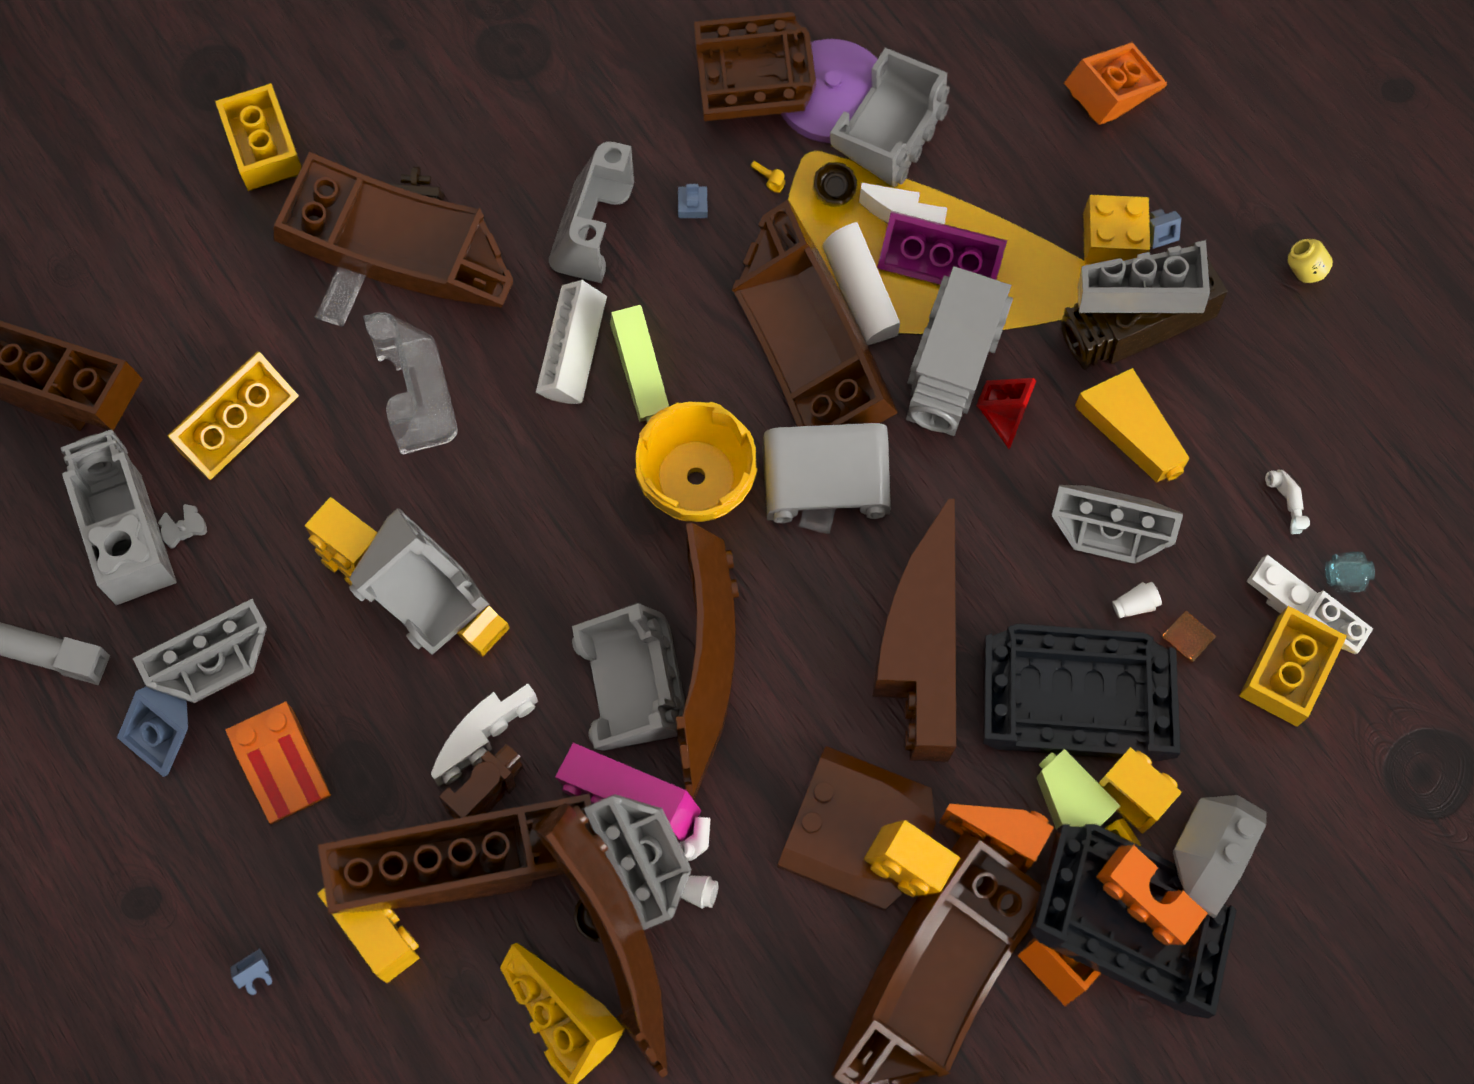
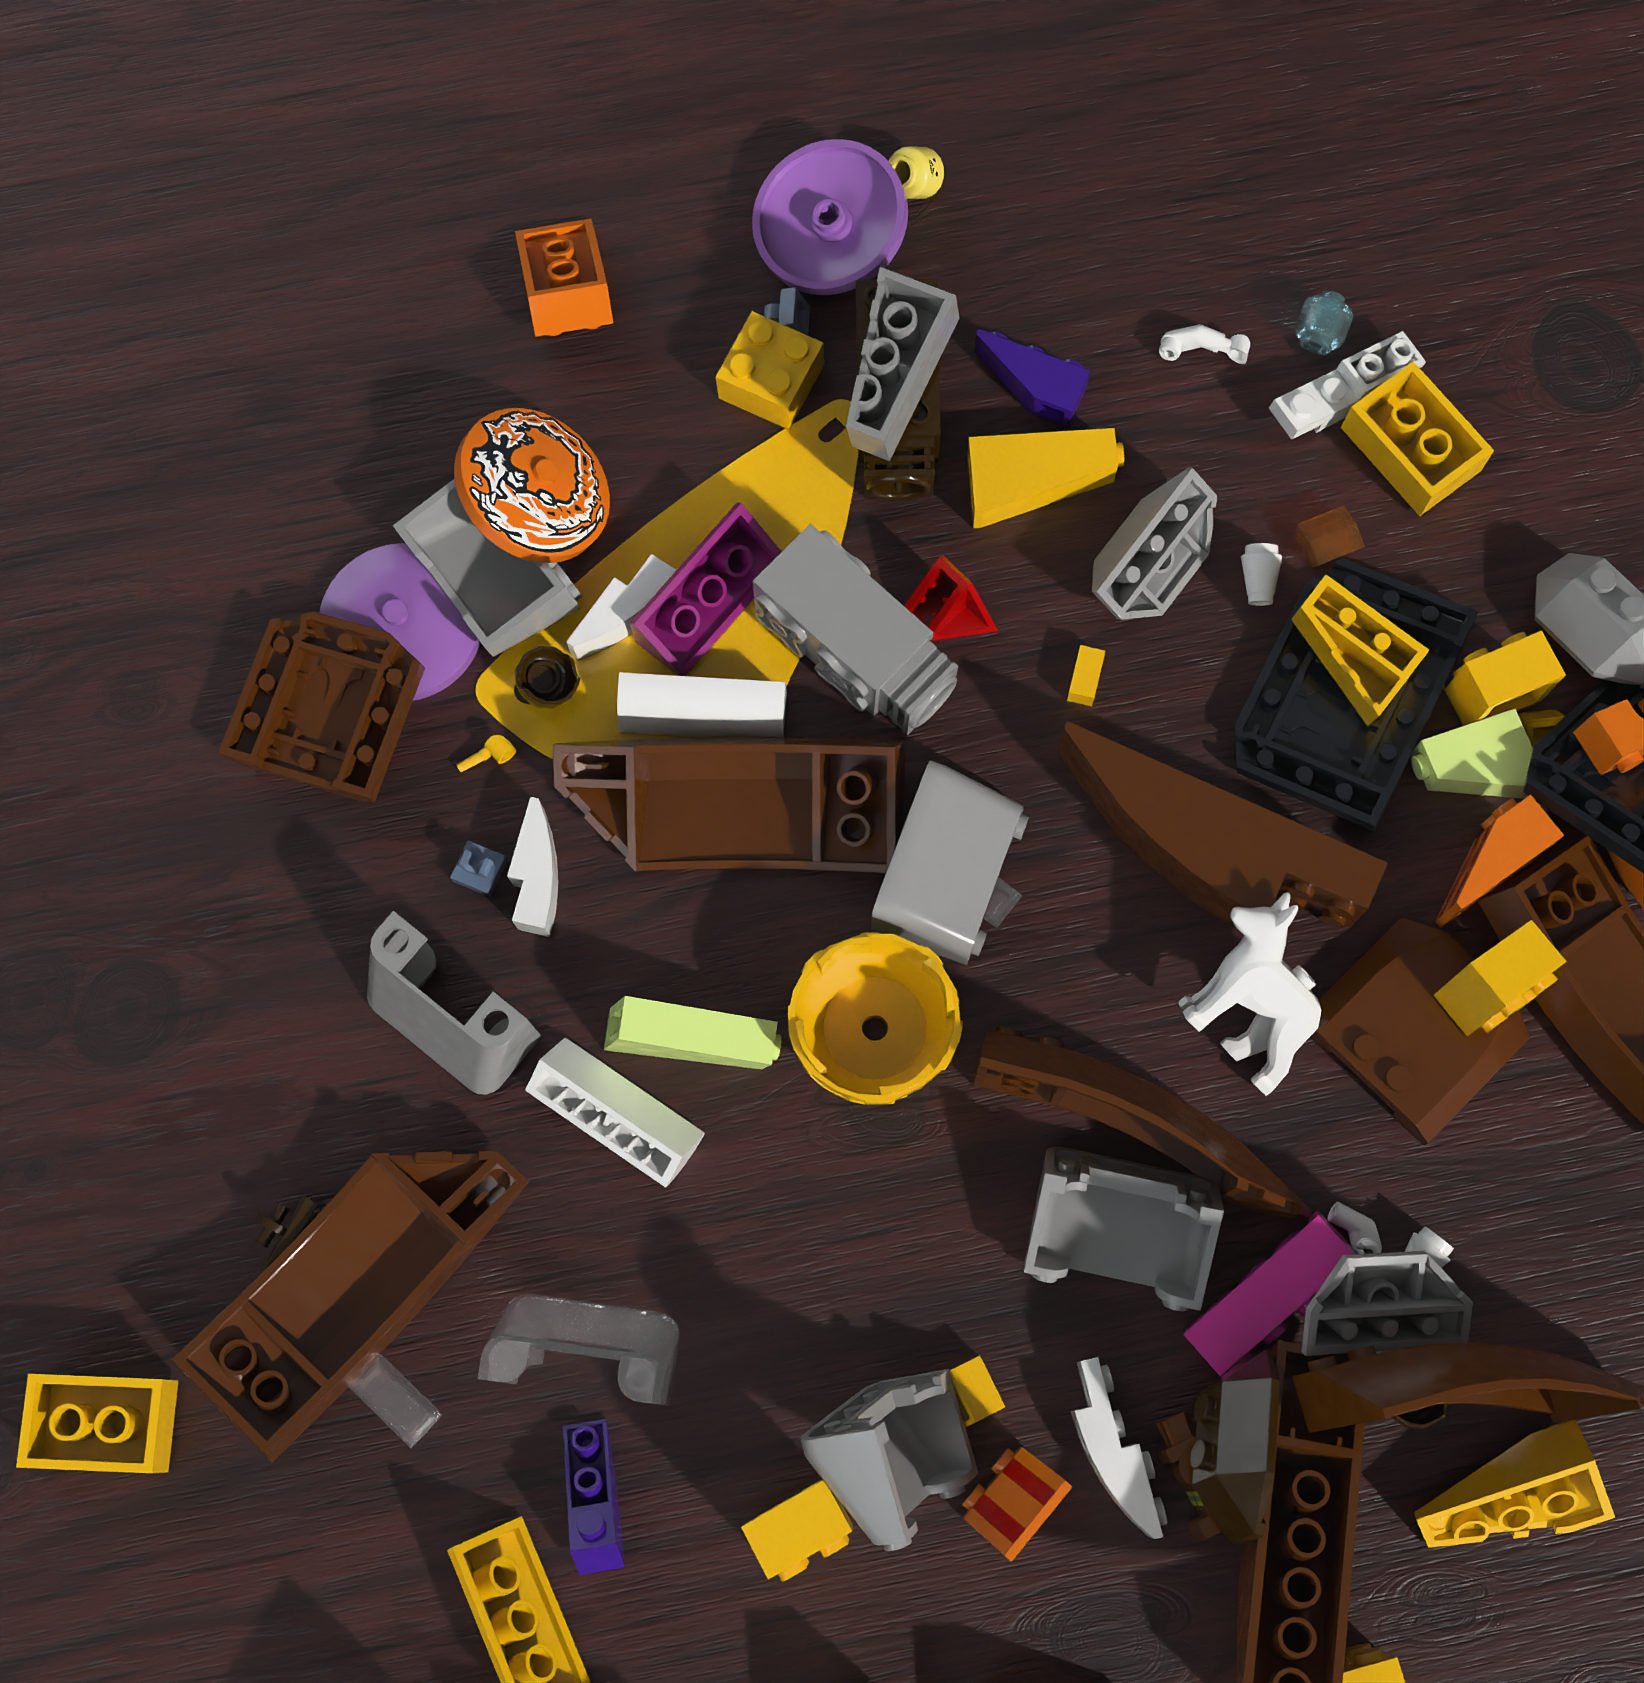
camera: 60 degrees left, 5 degrees up
(322, 429) = (592, 1498): none -> dark purple slope
(418, 678) = (1014, 1501): none -> orange slope
(508, 786) = (1238, 1446): none -> dark brown wedge
(706, 232) = (535, 872): none -> white slope
(832, 703) = (1265, 984): none -> white animal
(956, 118) = (531, 485): none -> dish
(1004, 515) = (1086, 675): none -> yellow piece
(1108, 679) = (1358, 647): none -> yellow wedge
(1201, 408) = (1040, 382): none -> dark purple slope
(1247, 220) = (830, 216): none -> medium lavender dish

